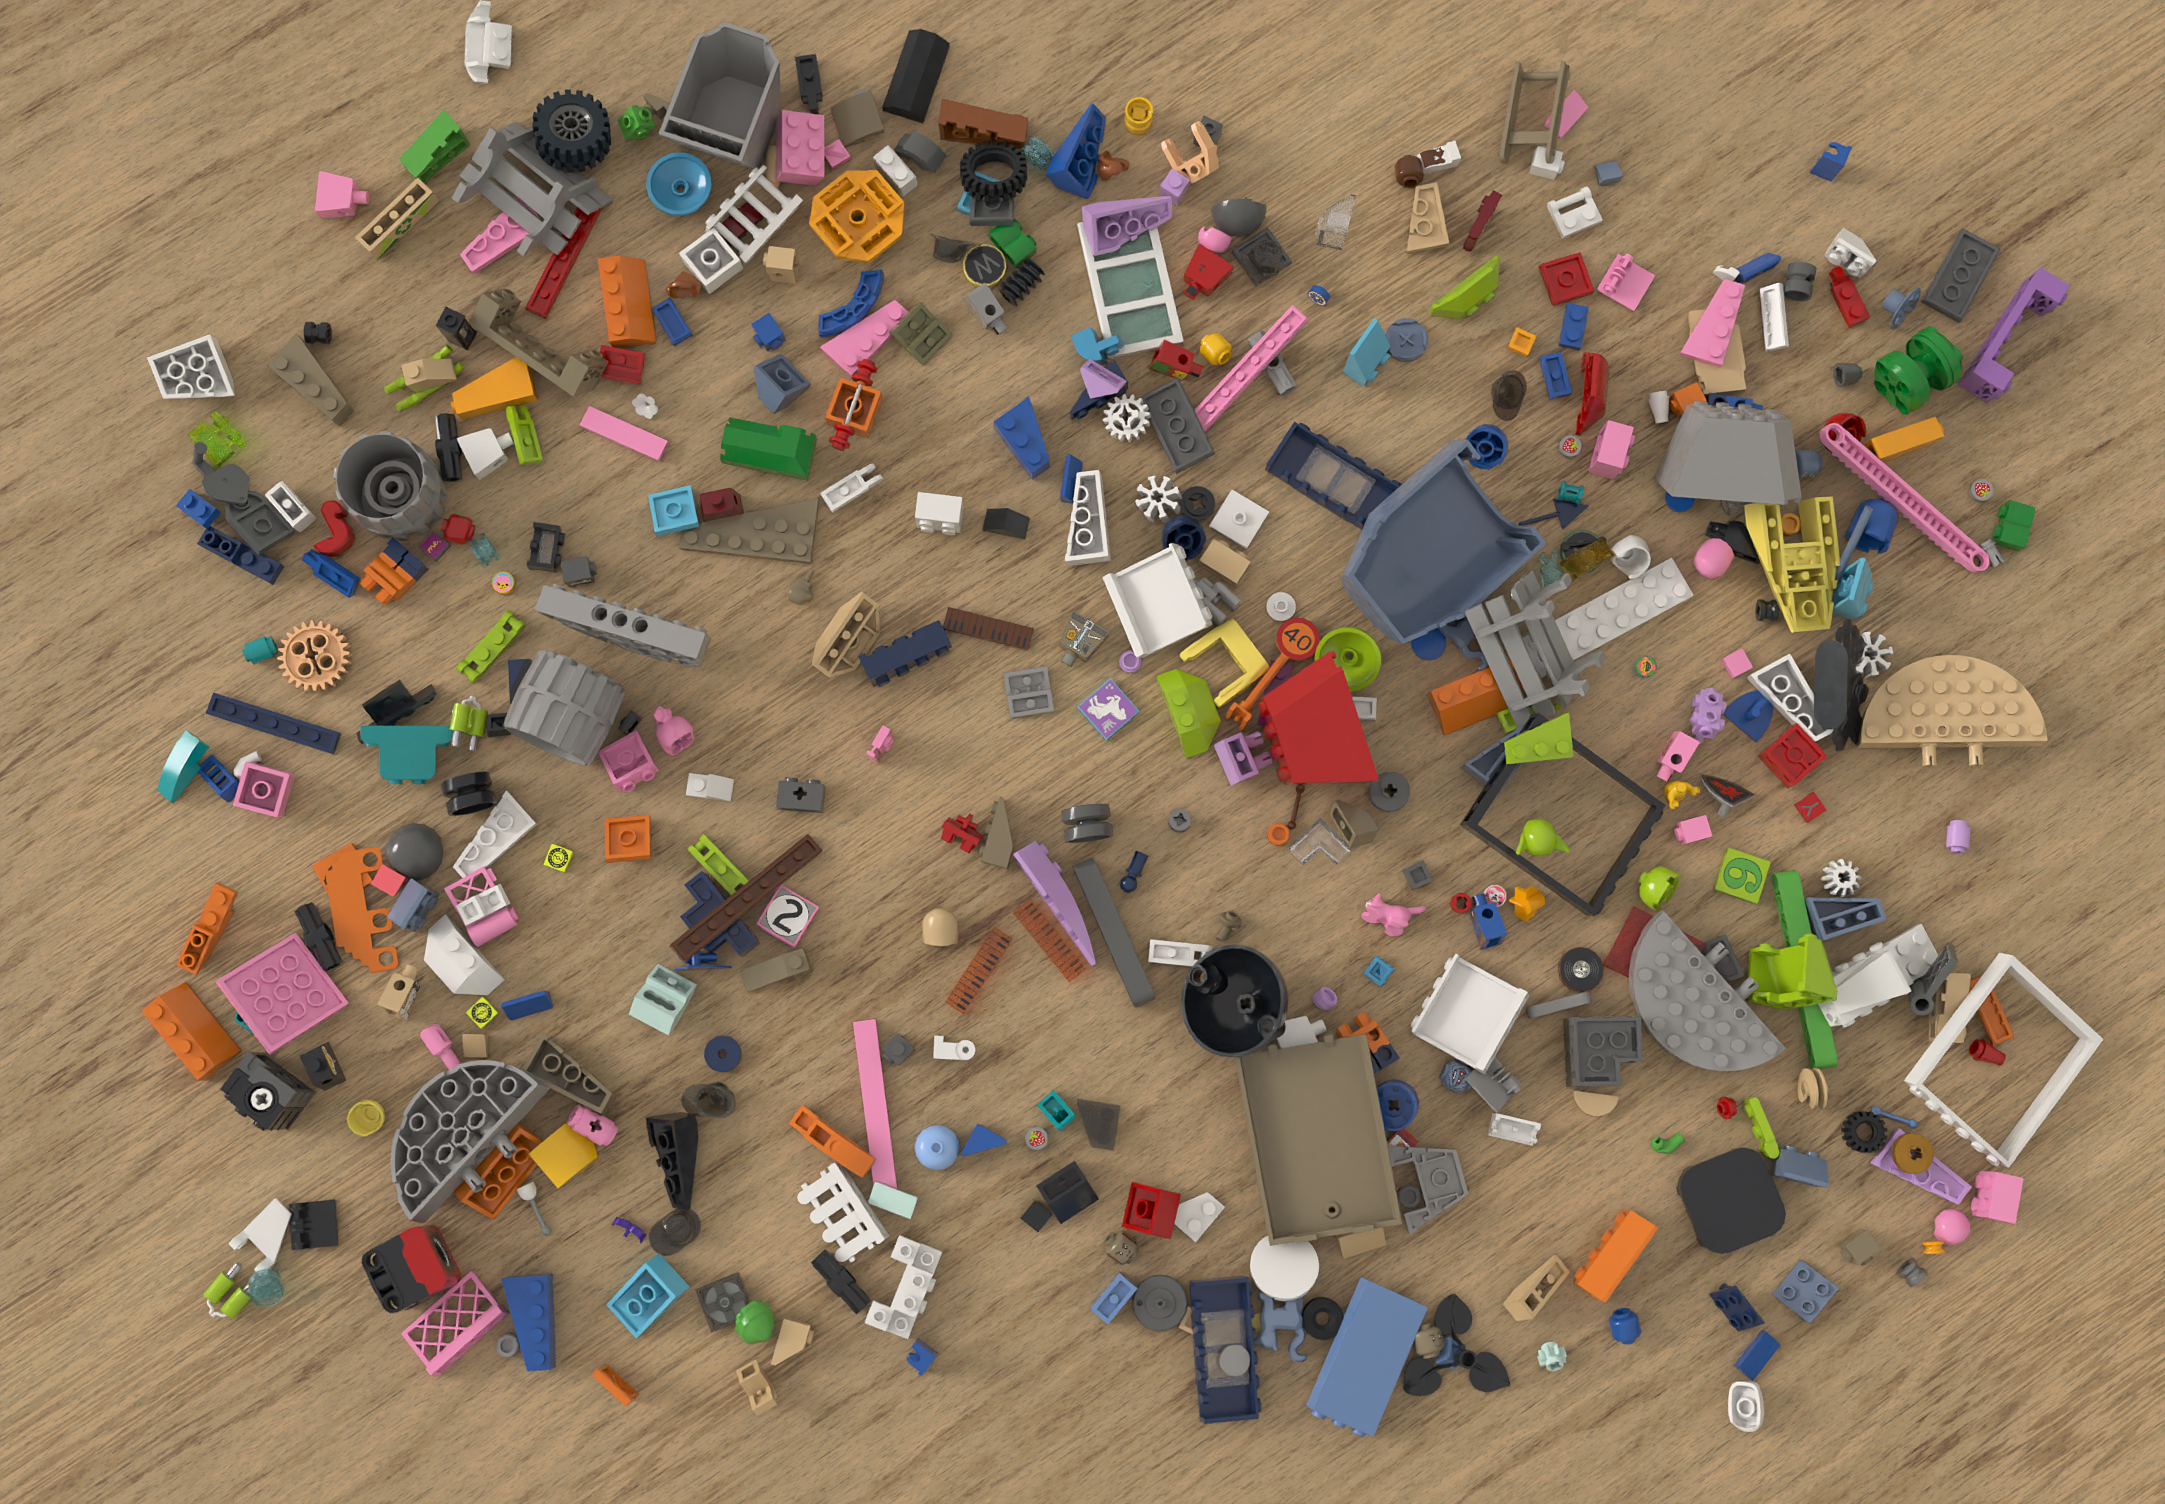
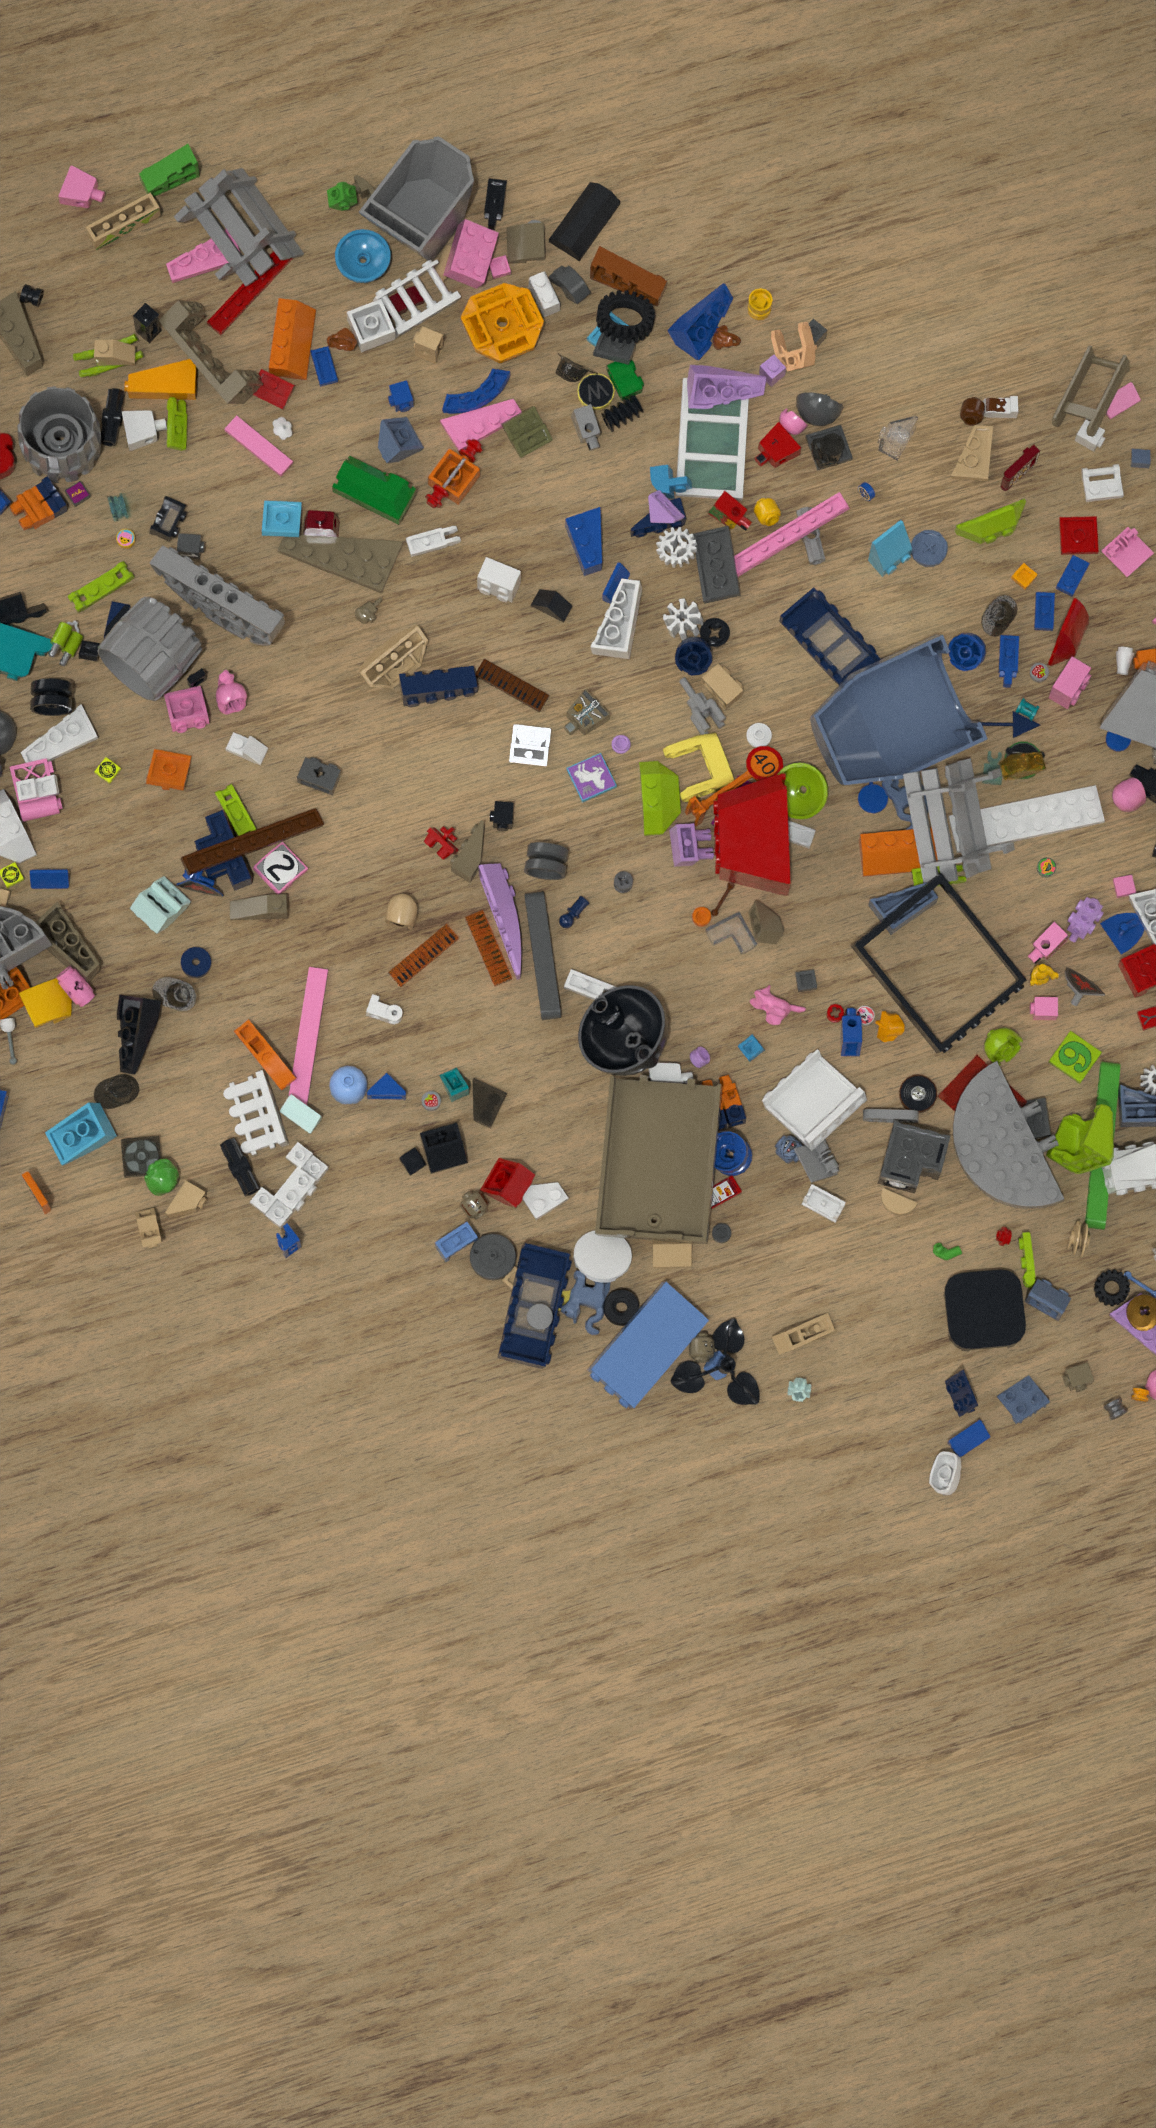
camera: 15 degrees right, 5 degrees down
(458, 529) = (101, 484): red head -> none
(486, 43) = (236, 98): white plate -> none
(575, 146) = (282, 201): black wheel -> none
(630, 1227) = (81, 1076): dark purple piece -> none
(881, 743) = (396, 752): bright pink plate -> none
(897, 1050) = (339, 998): dark grey brick -> none
(1021, 783) = (502, 815): none -> black brick
(1037, 152) = (666, 311): clear light blue wheel -> none
(1158, 601) = (657, 701): white panel -> none
(1231, 921) = (641, 974): dark tan plate -> none
(1239, 519) = (745, 655): white plate -> none
(1398, 799) = (794, 903): dark grey piece -> none
(1438, 1178) = (749, 1224): light grey wing -> none
(1532, 441) = (1008, 658): none -> blue hinge
(1540, 839) = (911, 973): lime piece -> none
(1542, 743) = (935, 897): lime wing -> none
(1615, 1255) = (874, 1324): orange slope -> none
(1625, 1325) = (866, 1383): blue head -> none
(1631, 556) = (1061, 773): white piece -> none

